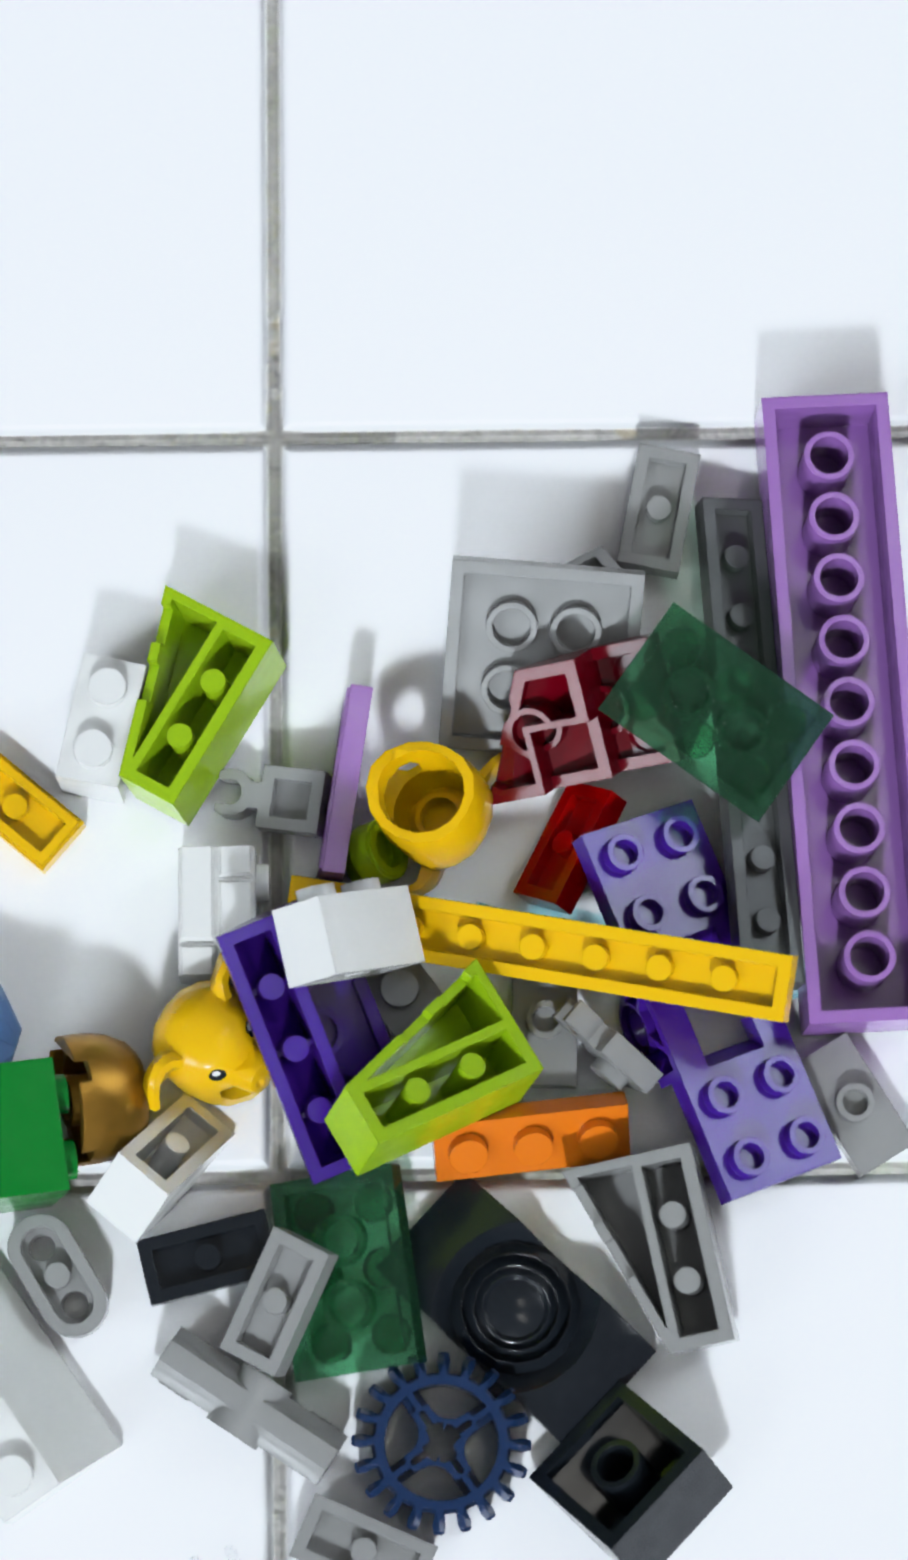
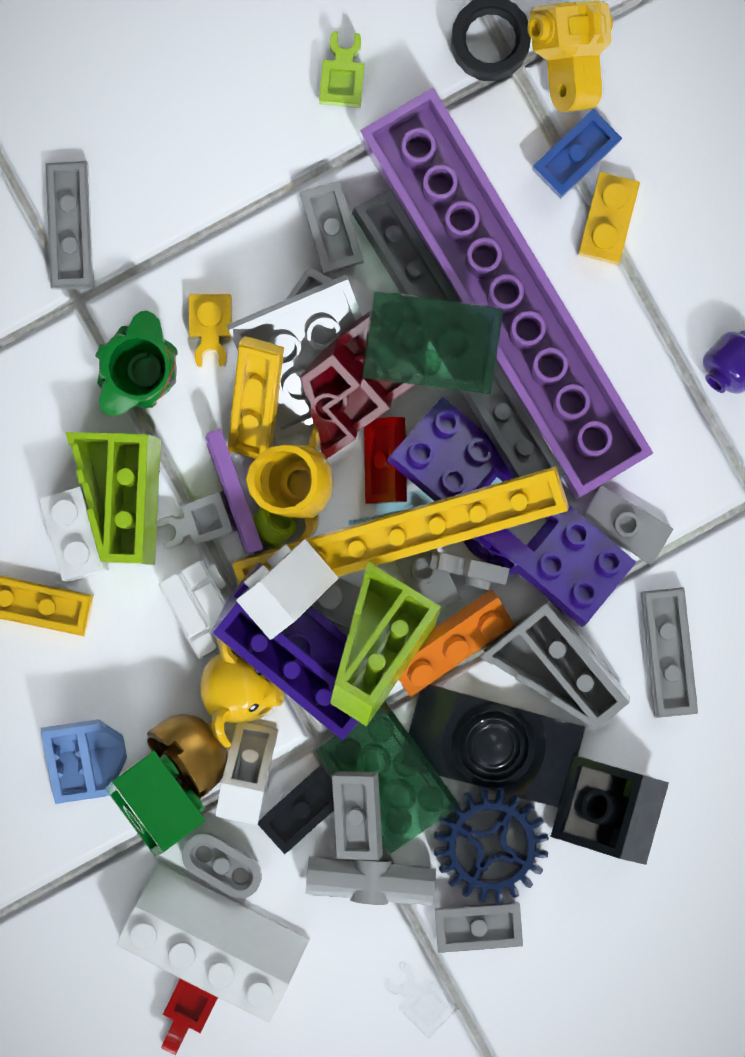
camera: 25 degrees left, 10 degrees up
(305, 549) = (136, 366): none -> green piece
(316, 337) = (69, 225): none -> light grey tile
(429, 553) = (209, 320): none -> yellow plate
(441, 667) = (255, 397): none -> yellow tile
(772, 329) = (342, 78): none -> lime plate
(824, 1310) = (669, 652): none -> light grey tile

